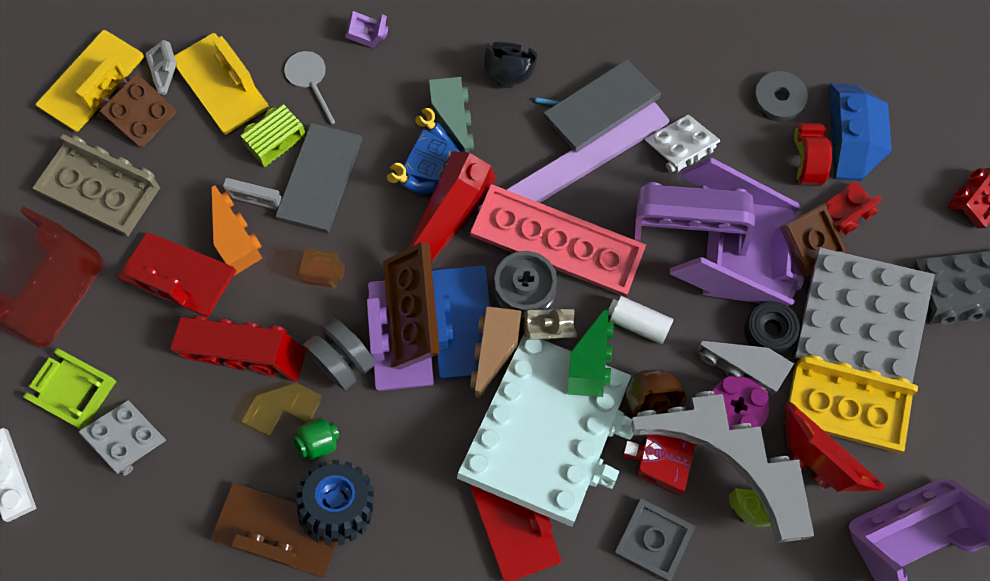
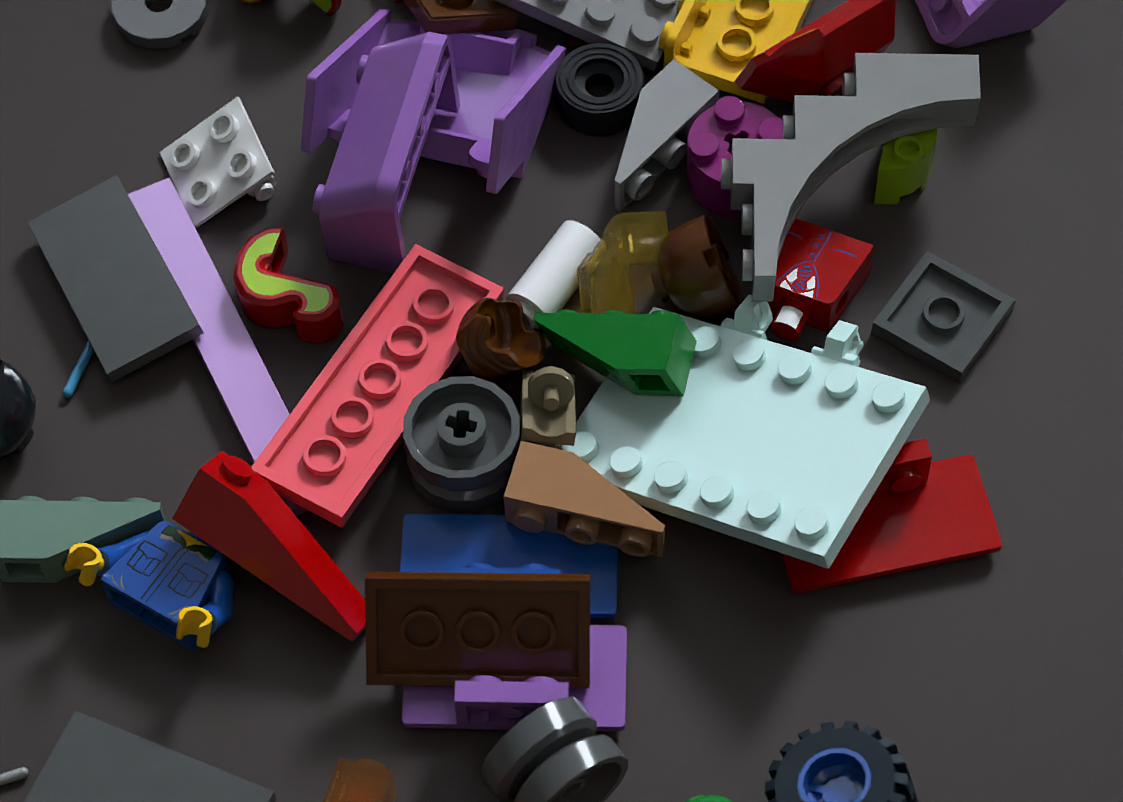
camera: 80 degrees left, 10 degrees down
(588, 294) = (497, 339): none -> reddish brown hair
(603, 176) = (280, 298): none -> red animal
(644, 345) = (606, 272): none -> clear yellow tile

